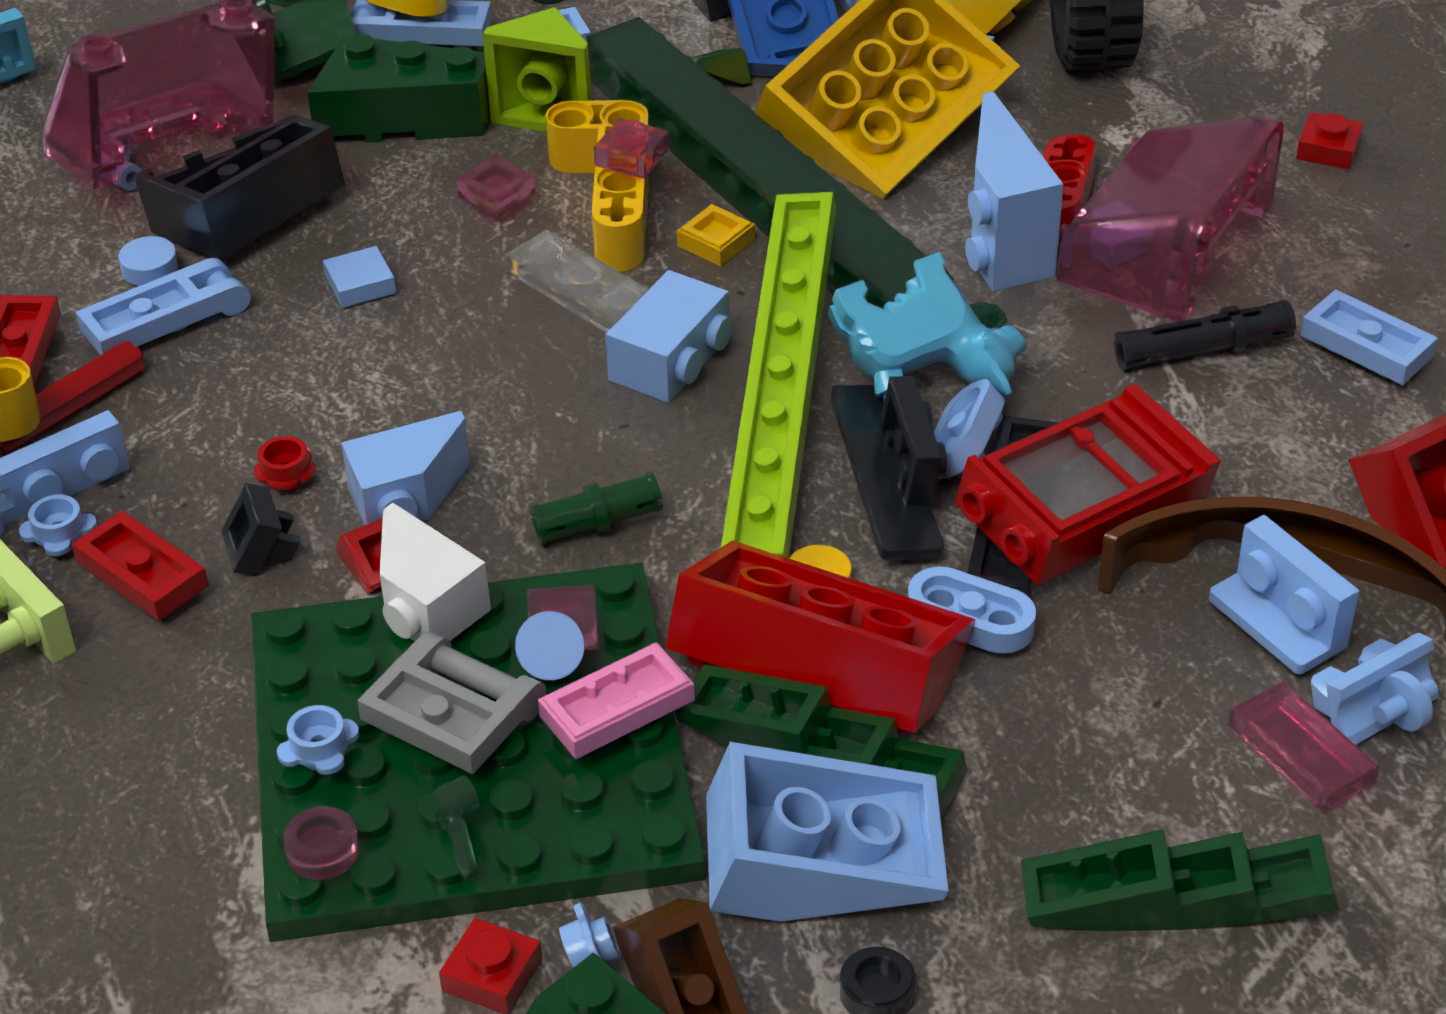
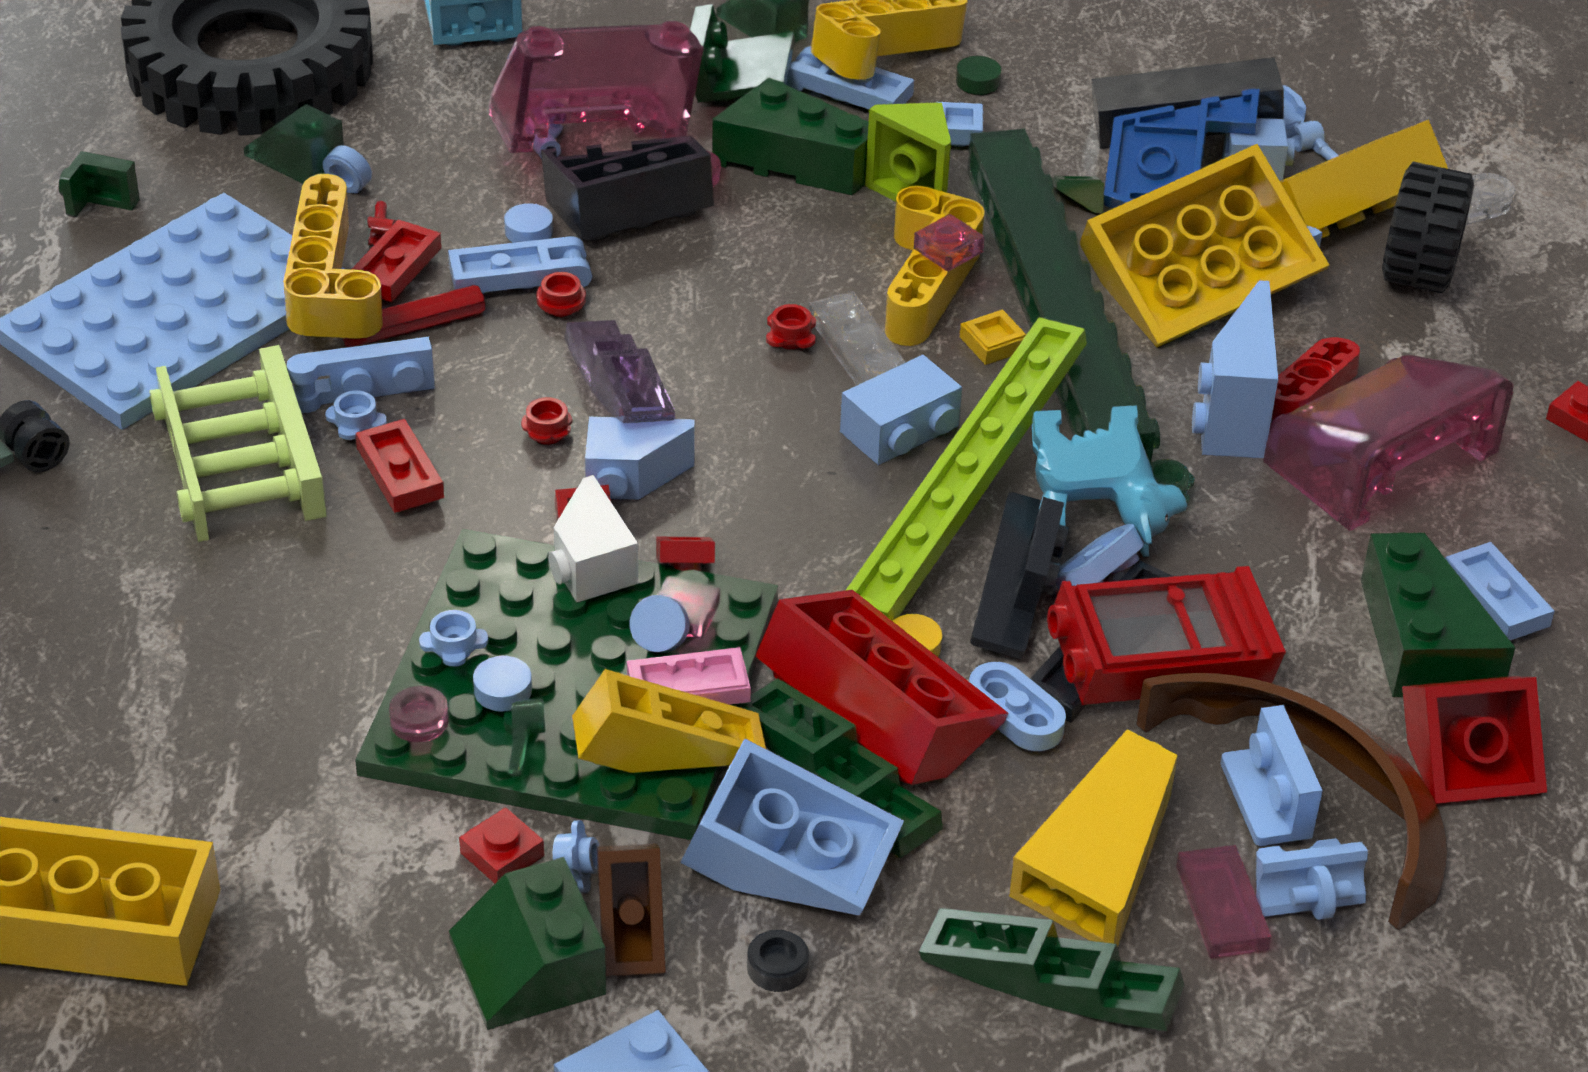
camera: 20 degrees right, 0 degrees up
(226, 323) = (561, 294): none -> red plate
(257, 531) = (499, 467): black tile -> none
(344, 387) = (618, 372): none -> clear purple slope
(359, 277) = (685, 286): light blue tile -> none
(402, 773) = (502, 682): none -> light blue tile
(443, 715) = (554, 650): light grey plate -> none
(496, 186) = (833, 242): clear pink plate -> none
(499, 286) = (791, 327): none -> red plate
(522, 558) = (685, 552): none -> red plate
(596, 508) = (766, 531): dark green pin -> none
(614, 764) = (658, 728): none -> yellow slope
(1152, 733) = (1097, 842): none -> yellow slope
(1228, 330) = (1324, 542): black pin -> none
(1325, 383) = (1427, 616): none -> dark green wedge

